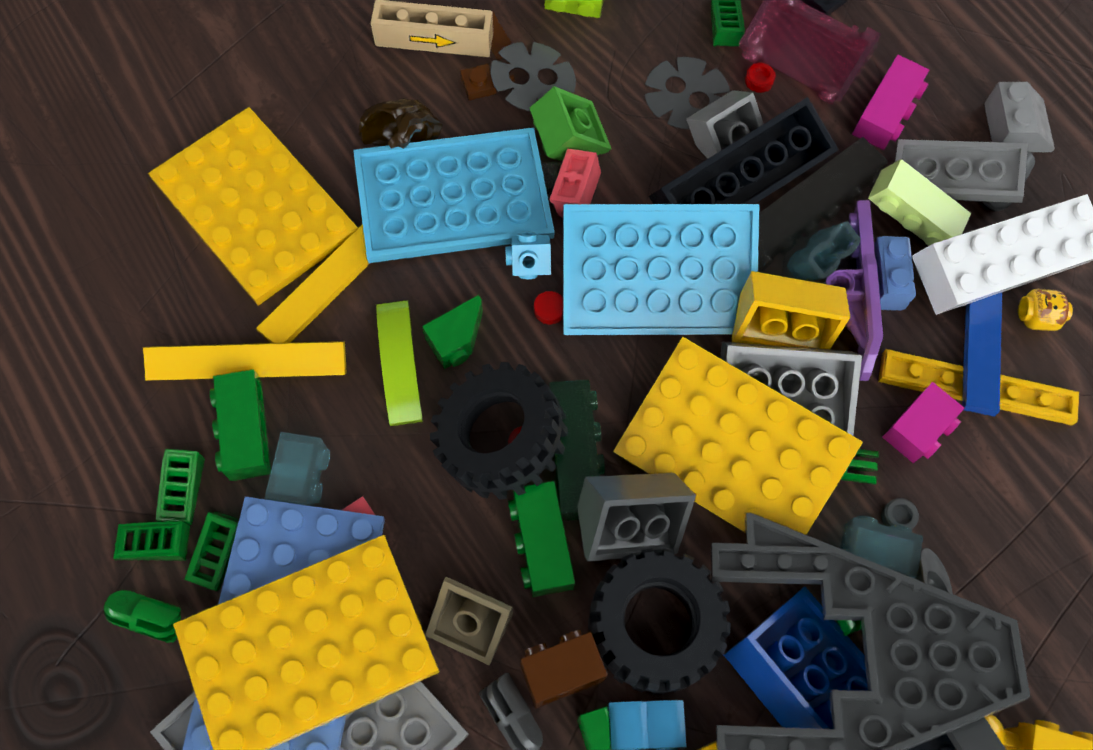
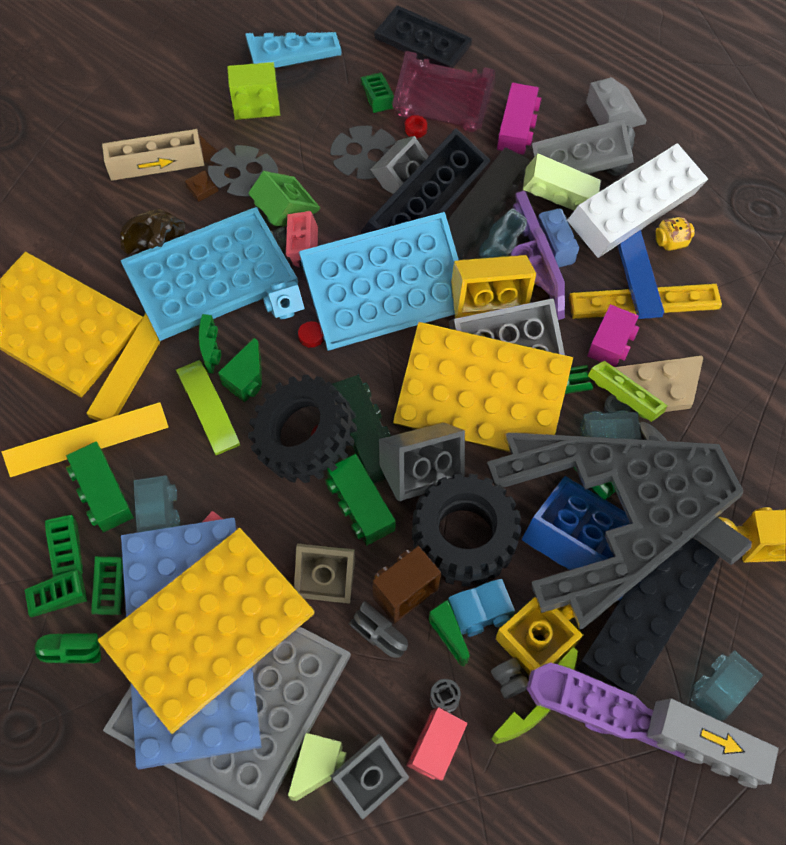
camera: 15 degrees left, 5 degrees down
(421, 291) = (208, 344): none -> green slope
(919, 503) = (627, 391): none -> lime plate
(962, 503) = (668, 380): none -> tan wing

